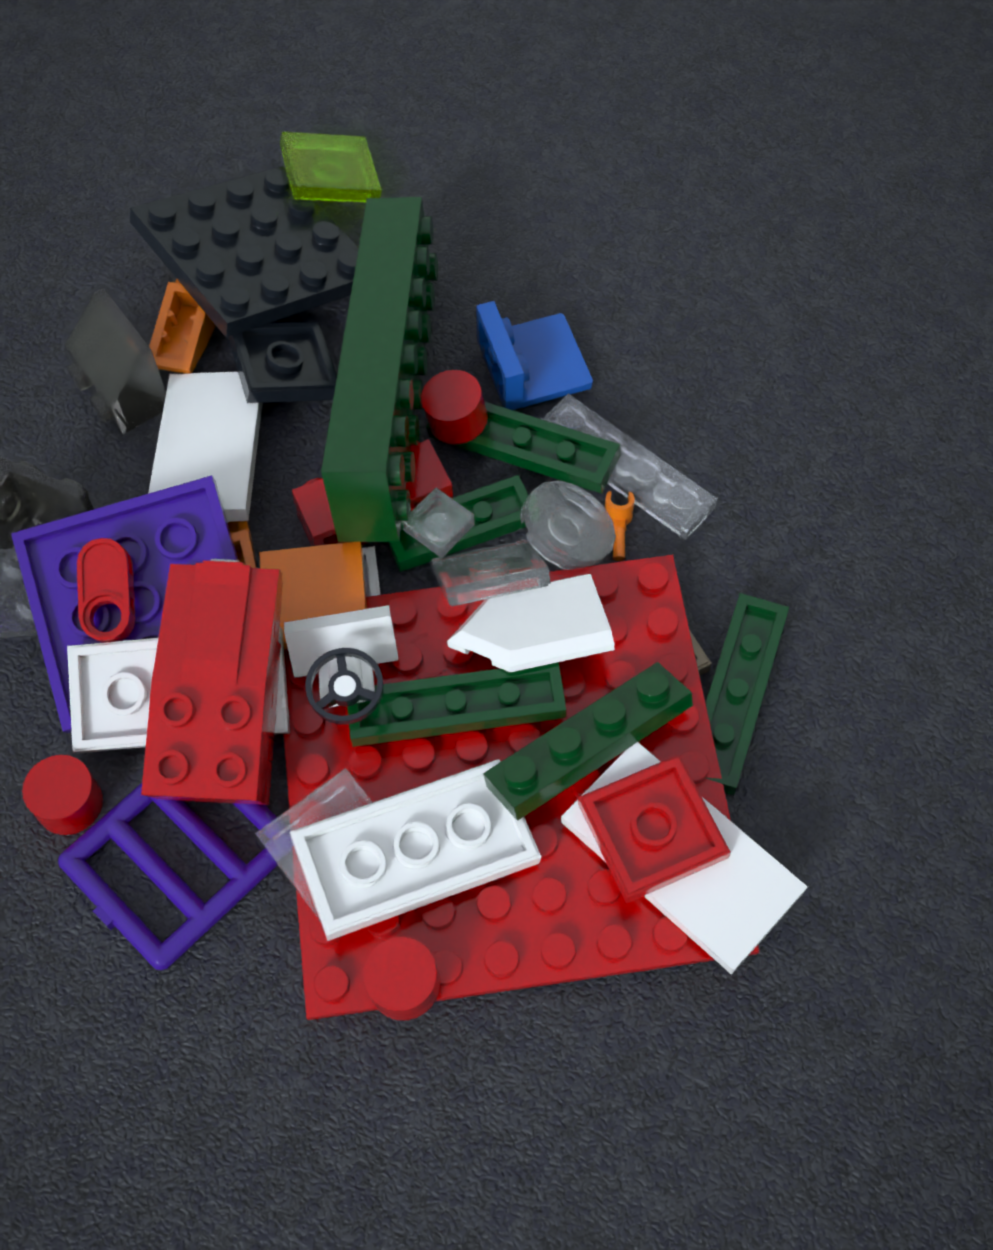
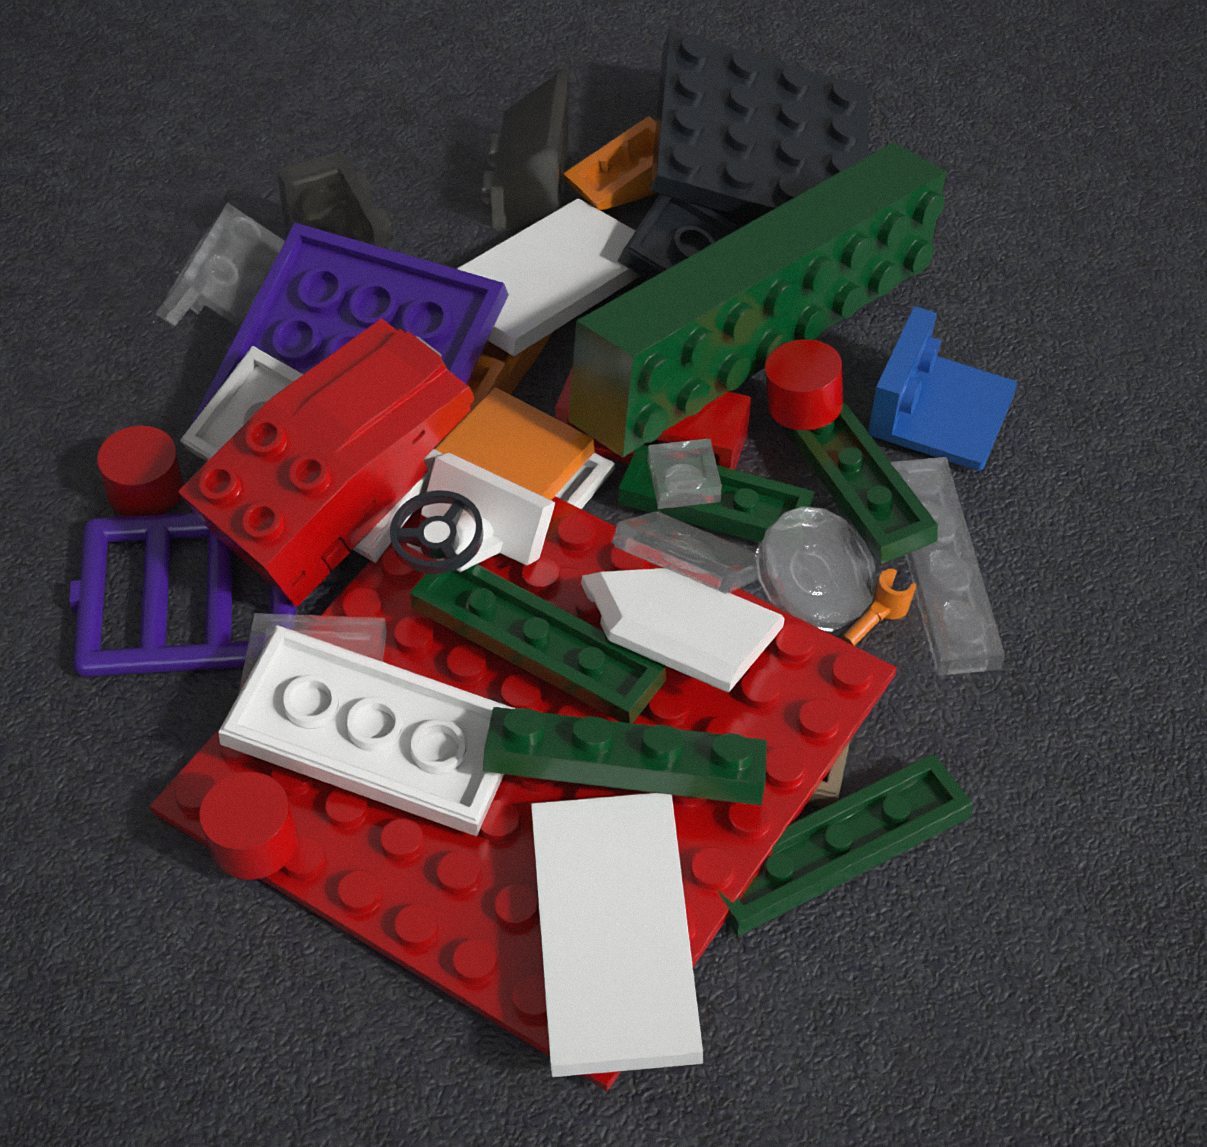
camera: 40 degrees right, 10 degrees down
(105, 578) = (331, 308): red piece -> none
(329, 167) = (909, 110): clear neon green tile -> none
(653, 828) = (602, 877): red tile -> none

